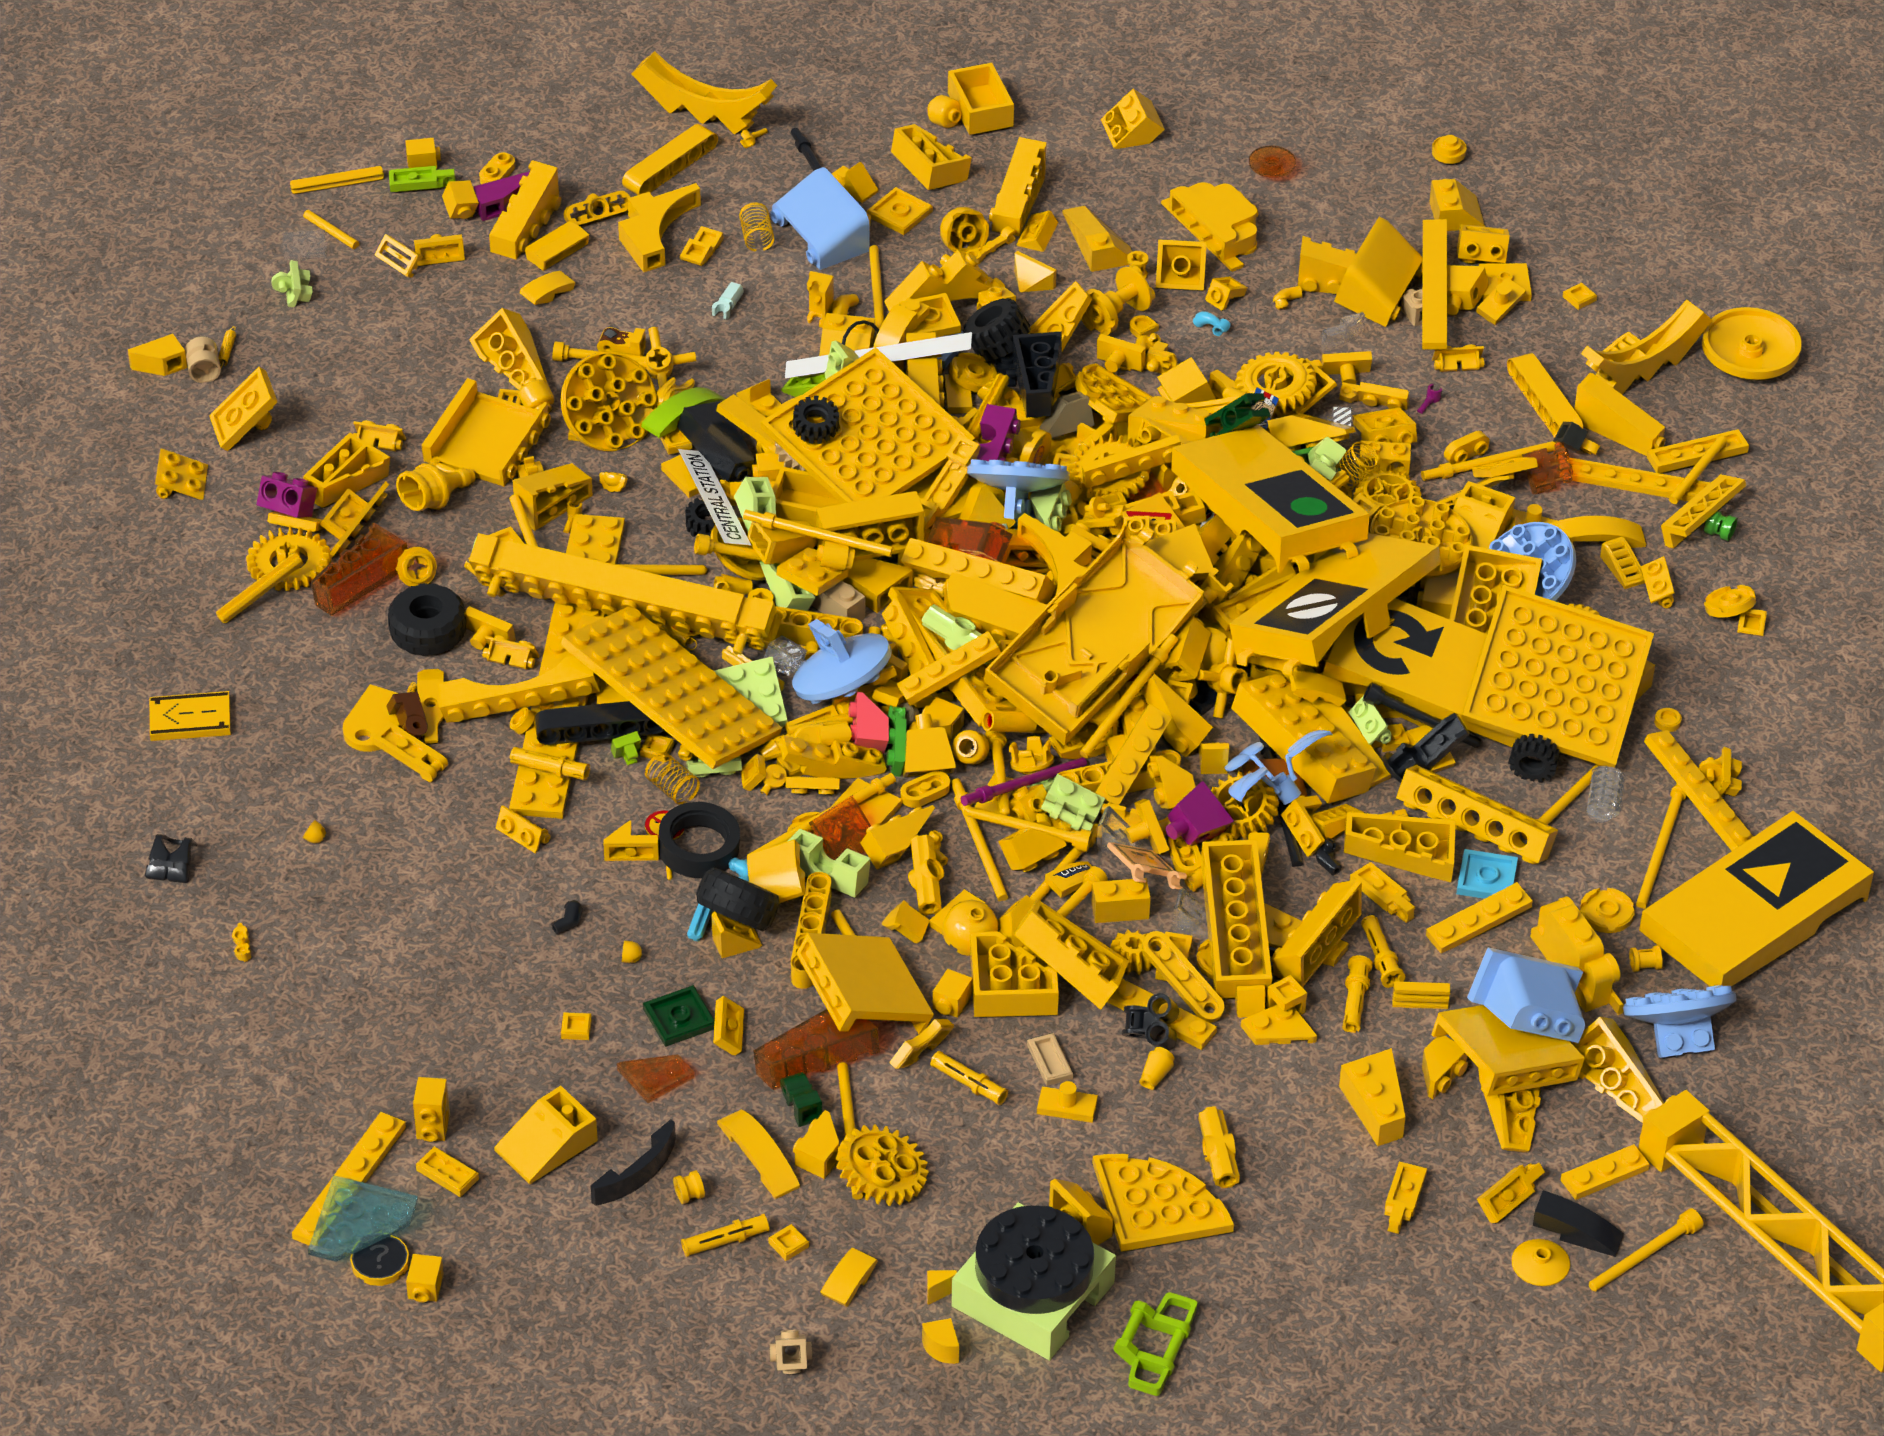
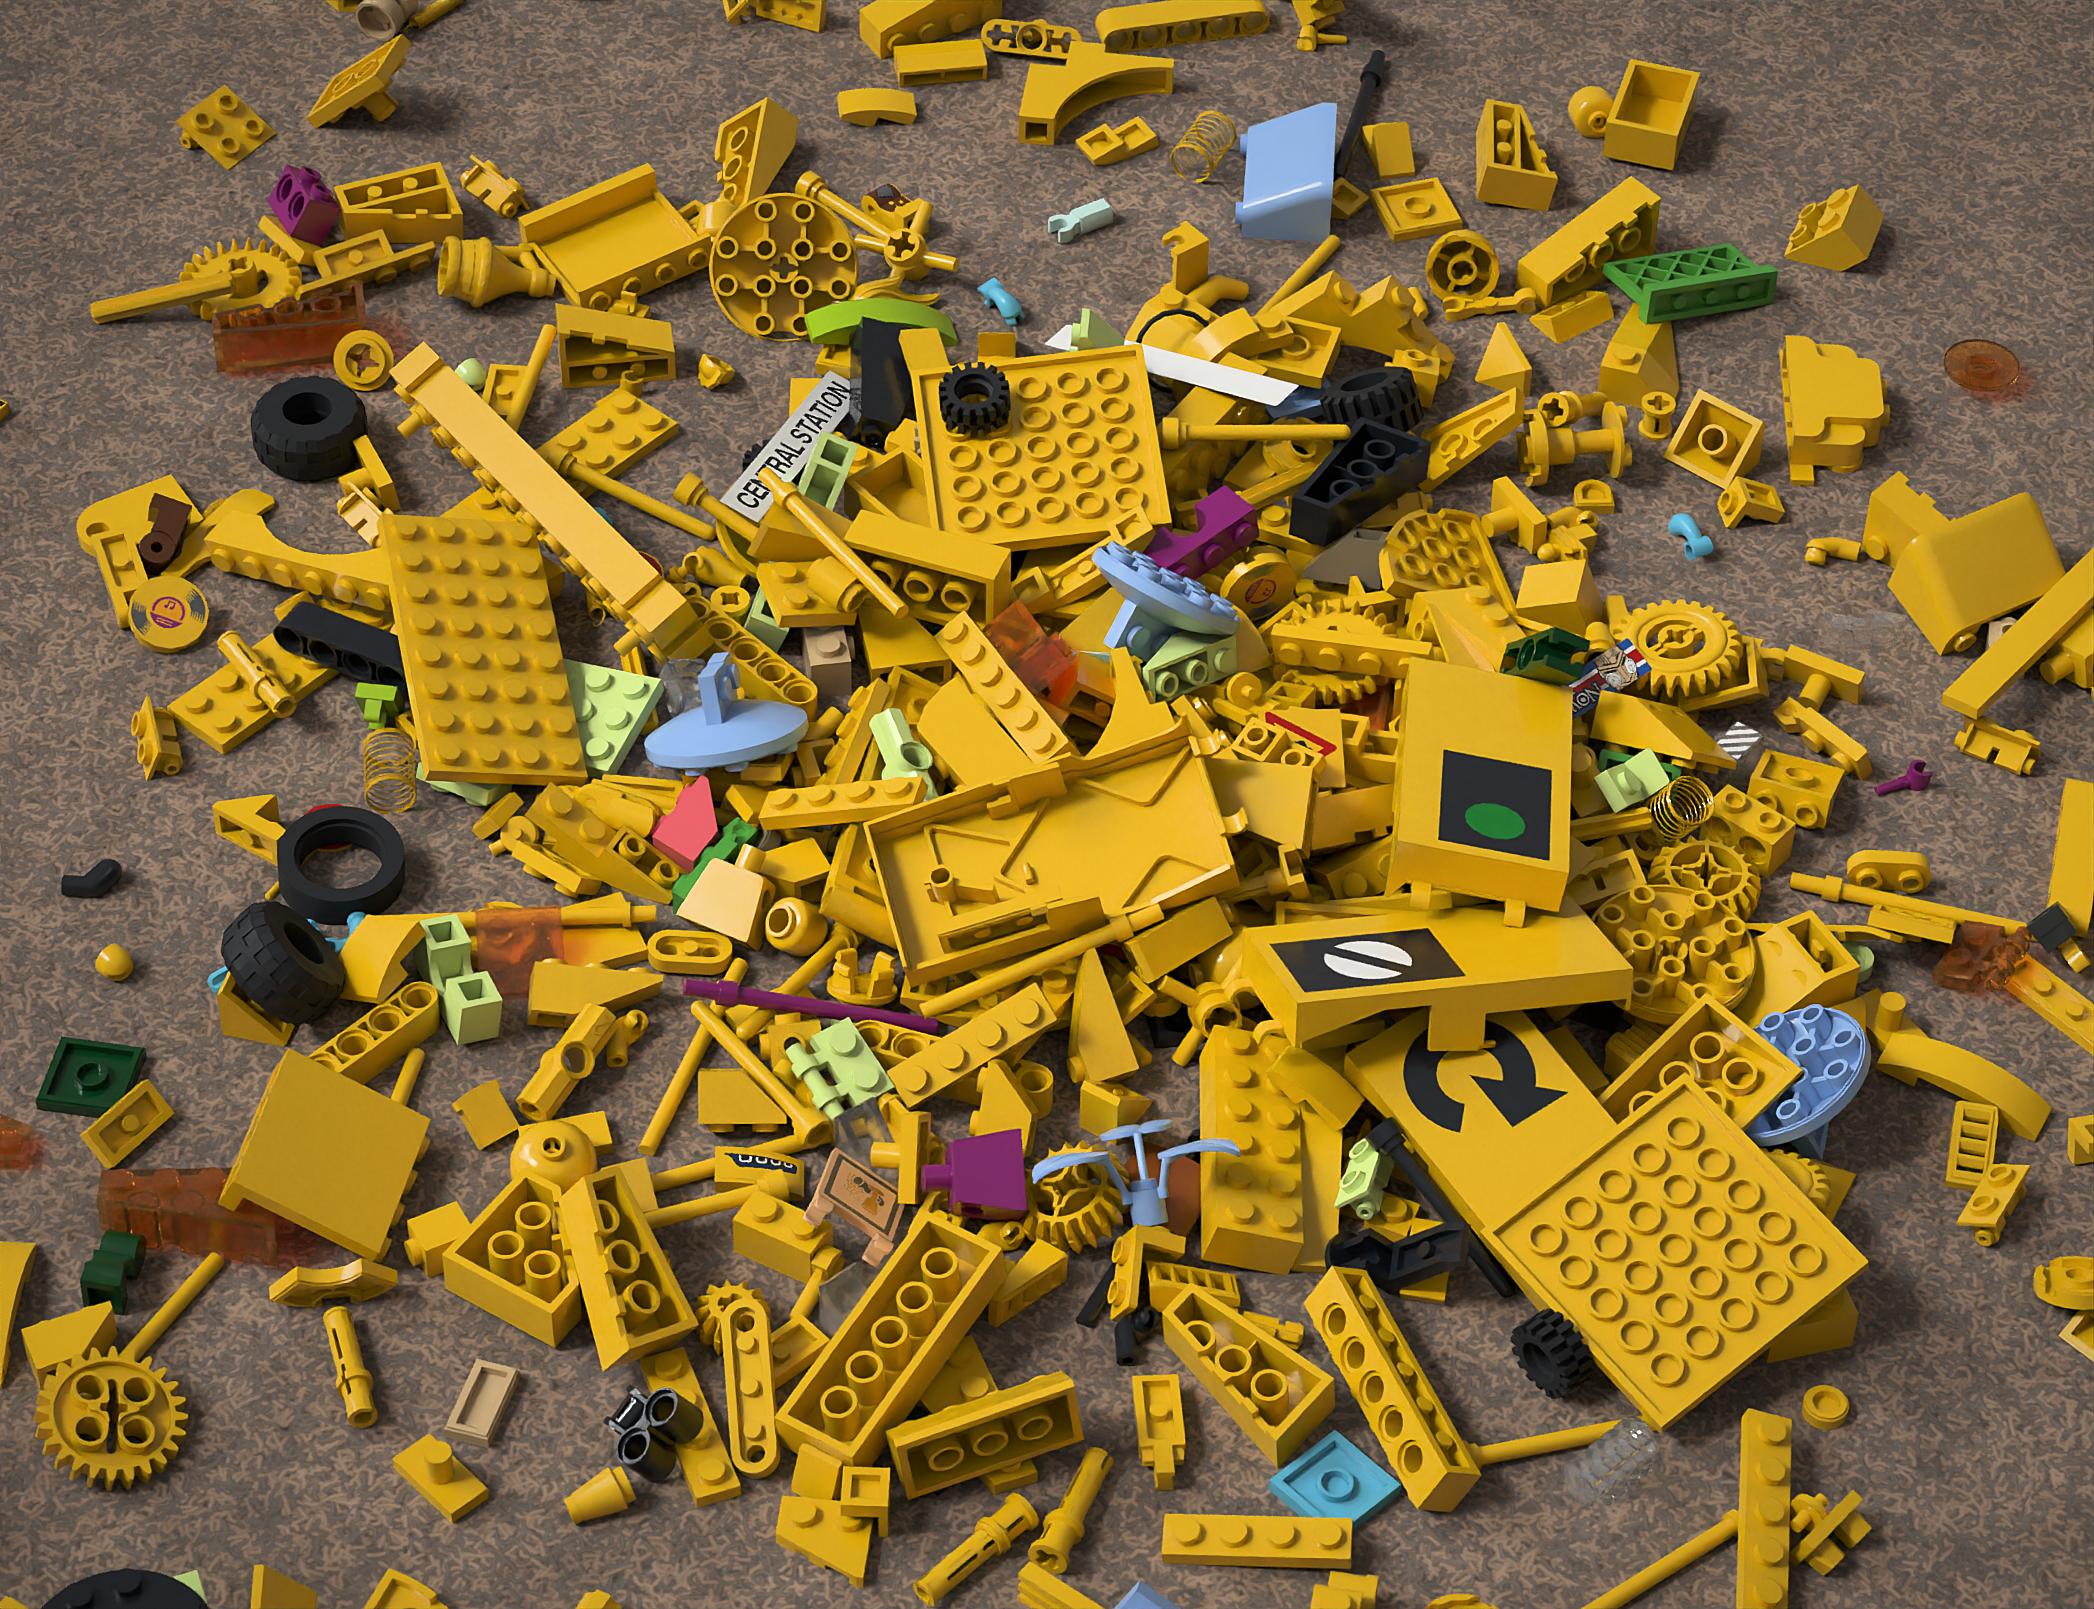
camera: 35 degrees right, 0 degrees up
(458, 758) = (167, 614): none -> yellow tile
(738, 366) = (1006, 303): none -> medium azure arm
(932, 387) = (1177, 432): none -> yellow piece
(1095, 191) = (1708, 287): none -> bright green fence
(1105, 282) = (1569, 407): none -> yellow pin
(1156, 911) = (824, 1266): none -> yellow bar

